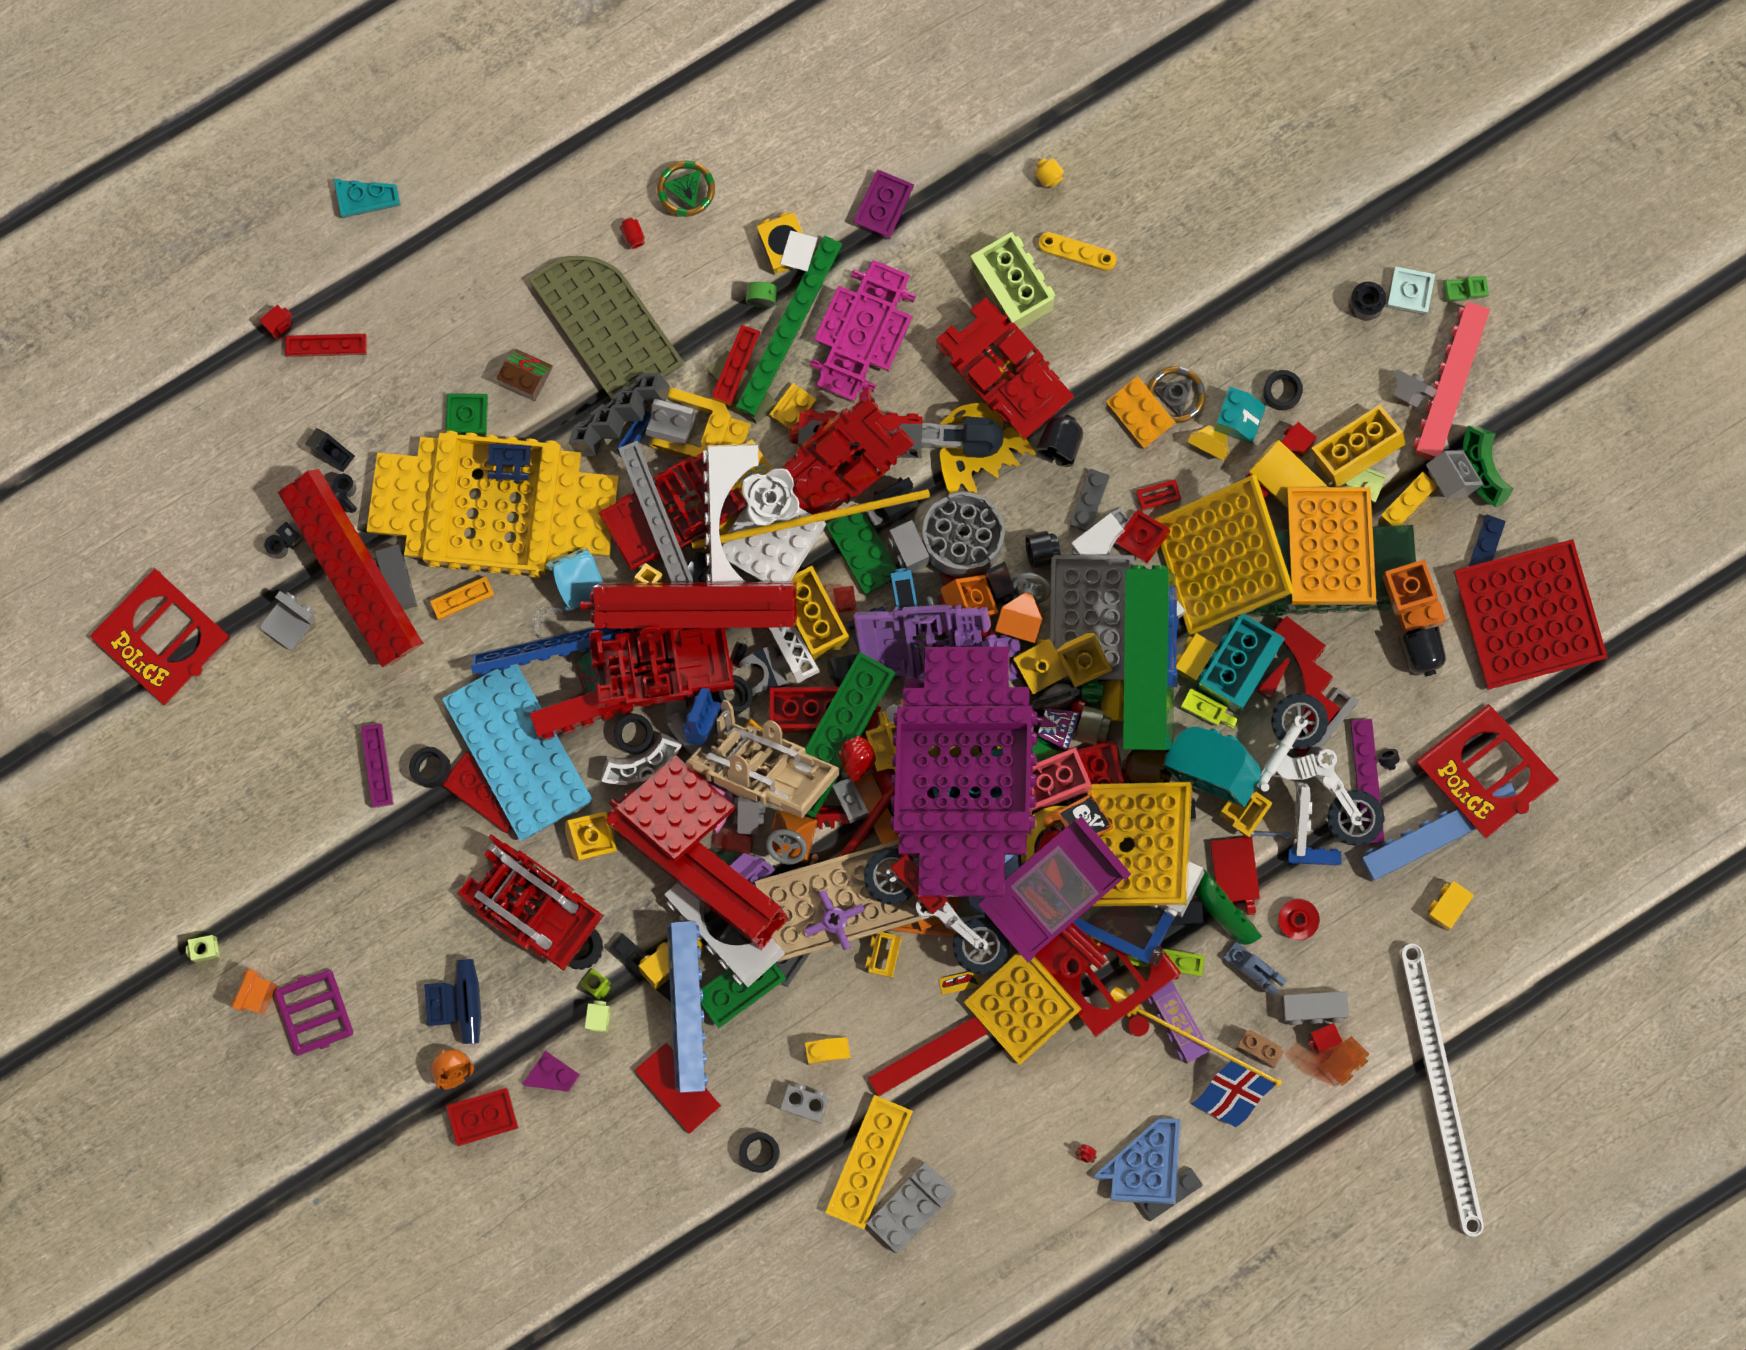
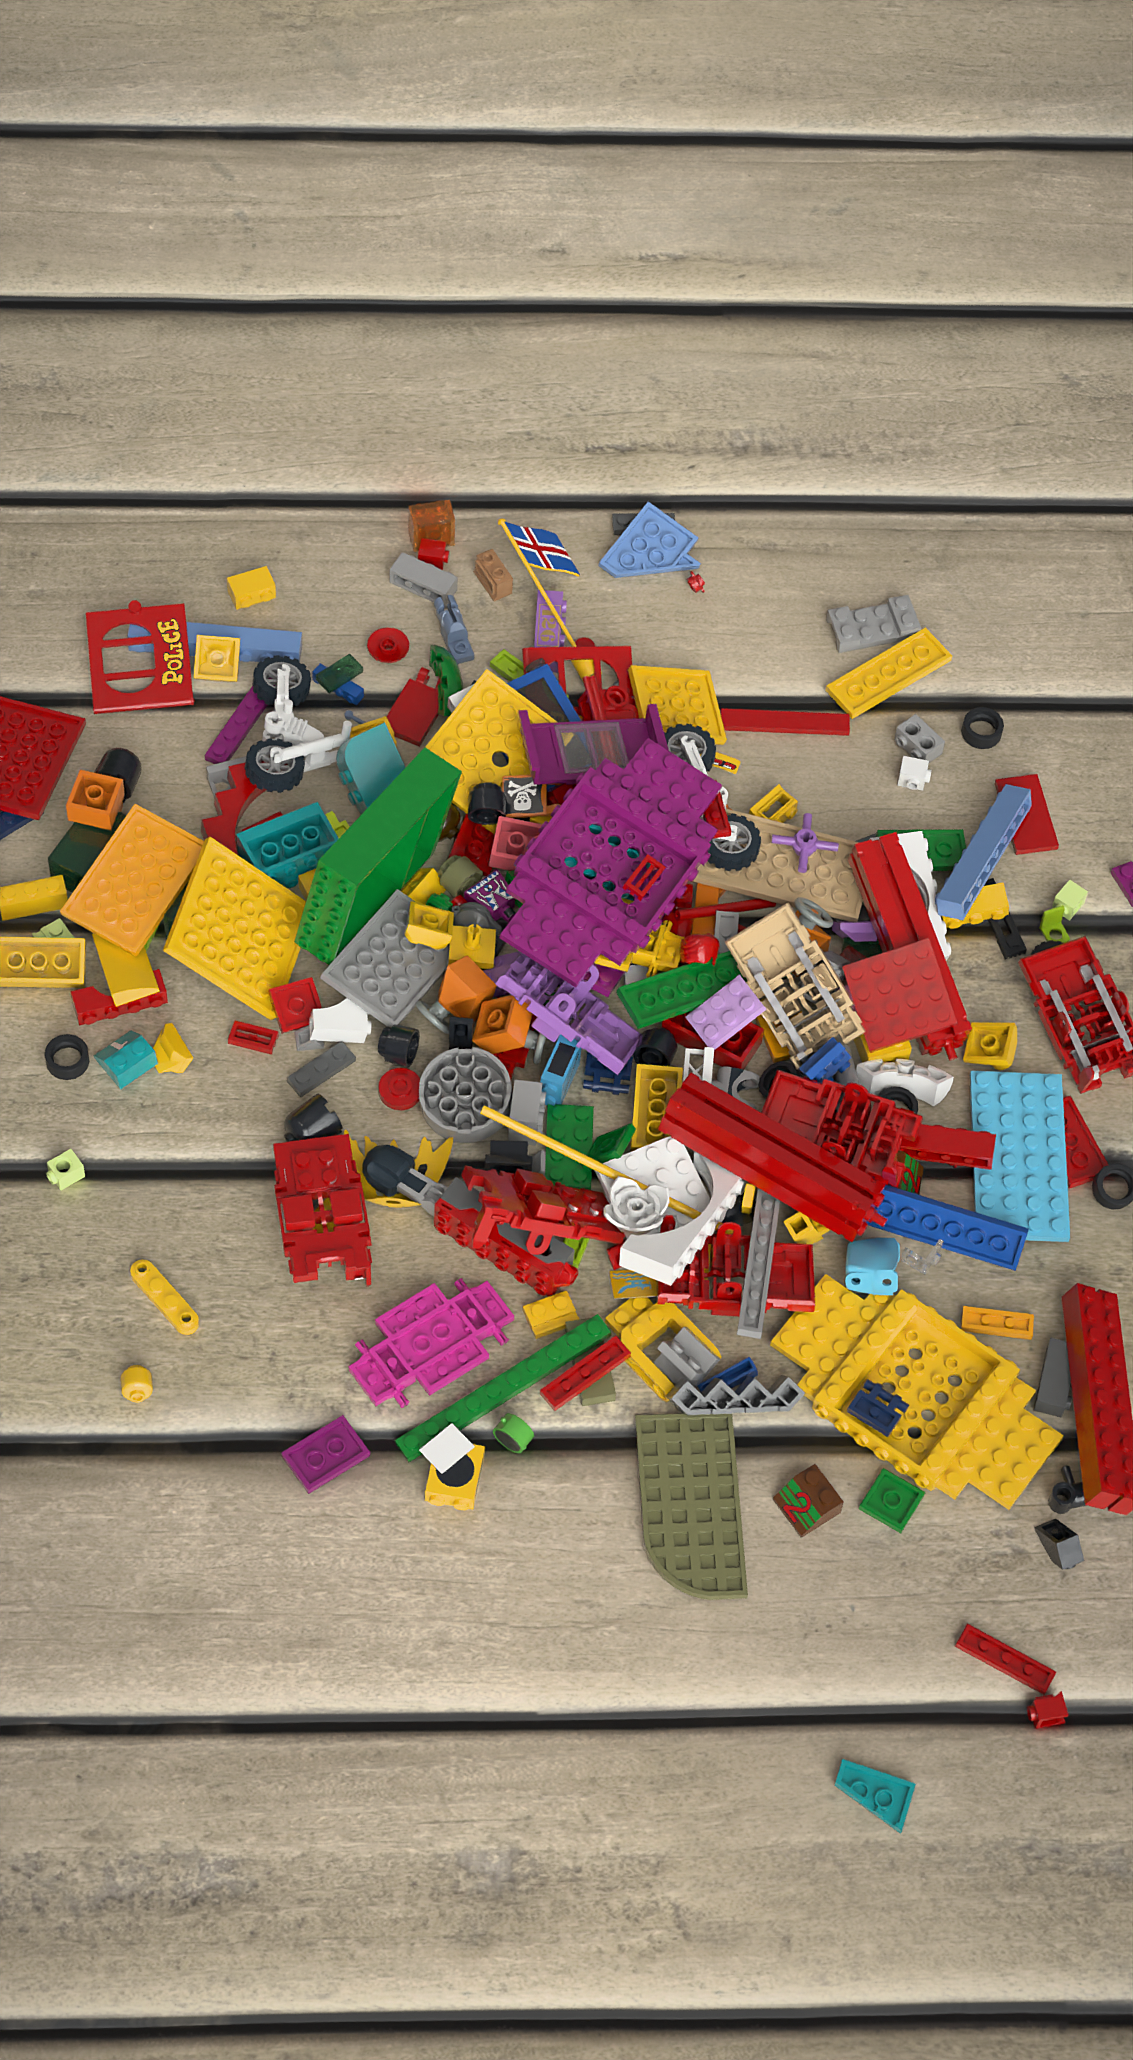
camera: 160 degrees left, 20 degrees down
(632, 233) = (607, 1578): red brick -> none
(686, 188) = (521, 1587): piece -> none
(697, 572) = (748, 1199): none -> yellow tile
(790, 1065) = (914, 773): none -> white brick
(802, 710) = (725, 1013): none -> lavender plate
(827, 1050) = (874, 768): yellow slope -> none
(828, 555) = (611, 1144): none -> green tile
(844, 599) = (617, 1105): clear red window -> none
(929, 786) = (635, 889): none -> red tile
(1012, 281) = (252, 1292): yellowish green brick -> none
(1020, 519) = (399, 1088): none -> red piece
(1108, 790) = (486, 804): none -> black piece
(1141, 412) = (215, 1113): light orange plate -> none
(1177, 393) = (169, 1113): flat silver piece -> none
(1212, 306) = (69, 1161): none -> yellowish green brick
(1303, 808) = (326, 704): white wing -> none
(1315, 857) = (339, 673): none -> clear green plate
(1389, 758) = (214, 717): black tile -> none
(1423, 806) = (217, 658): none -> yellow slope
(1442, 1090) = (362, 476): white gear -> none

